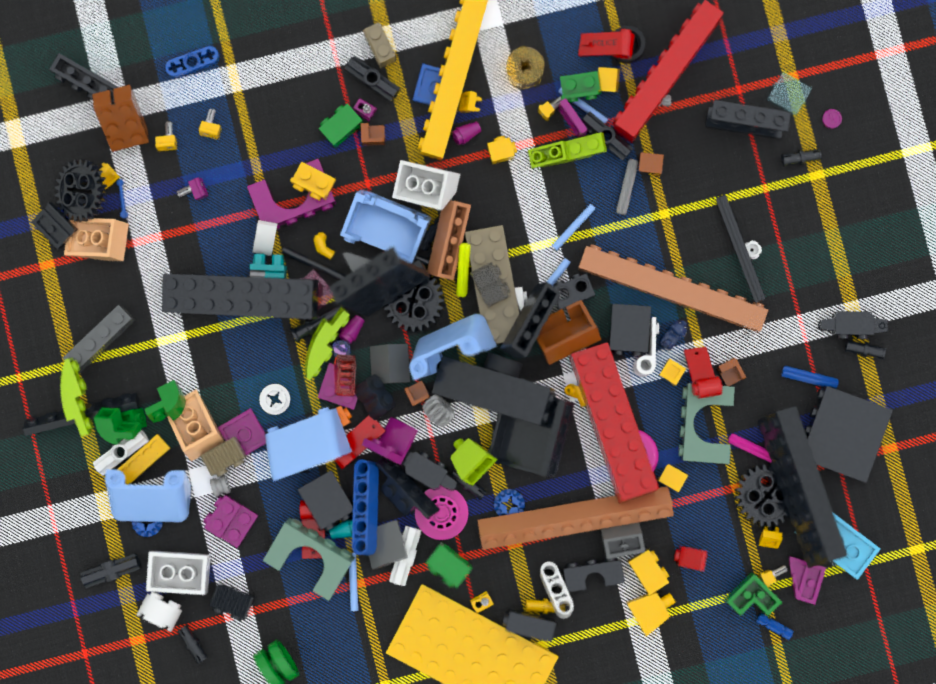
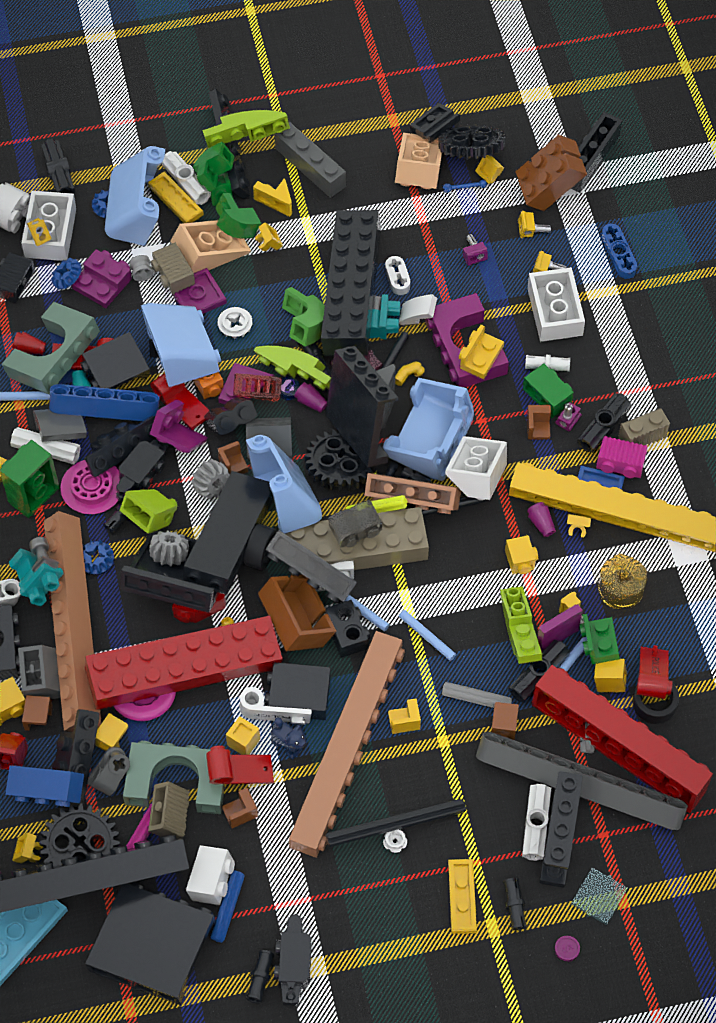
camera: 85 degrees right, 25 degrees down
(143, 365) = (276, 199): none -> yellow slope
(185, 371) = (270, 238): none -> yellow tile
(196, 579) = (36, 228): none -> yellow piece
(220, 253) = (393, 276): none -> white beam
(235, 550) = (66, 273): none -> blue gear
(255, 117) = (556, 304): none -> white brick
(272, 329) = (309, 314): none -> bright green arch
(301, 582) = (28, 344): none -> red cone
(312, 126) = (555, 363): none -> white pin
(407, 65) = (621, 457): none -> dark pink brick
(508, 434) = (169, 548): none -> light grey gear
(537, 550) = (36, 571): none -> teal hips
(648, 244) = (405, 718): none -> yellow panel
(656, 539) = (36, 711): none -> dark orange panel
(697, 505) = (76, 748): none -> black bracket
(700, 105) = (596, 785): none -> dark grey beam
(706, 476) = (107, 773): none -> dark grey piece
(723, 526) = (44, 785): none -> blue brick
(738, 427) = (168, 810): none -> dark tan brick
(747, 141) = (537, 809): none -> white piece
(789, 391) = (210, 875): none -> white brick
(794, 198) = (462, 896): none -> yellow tile

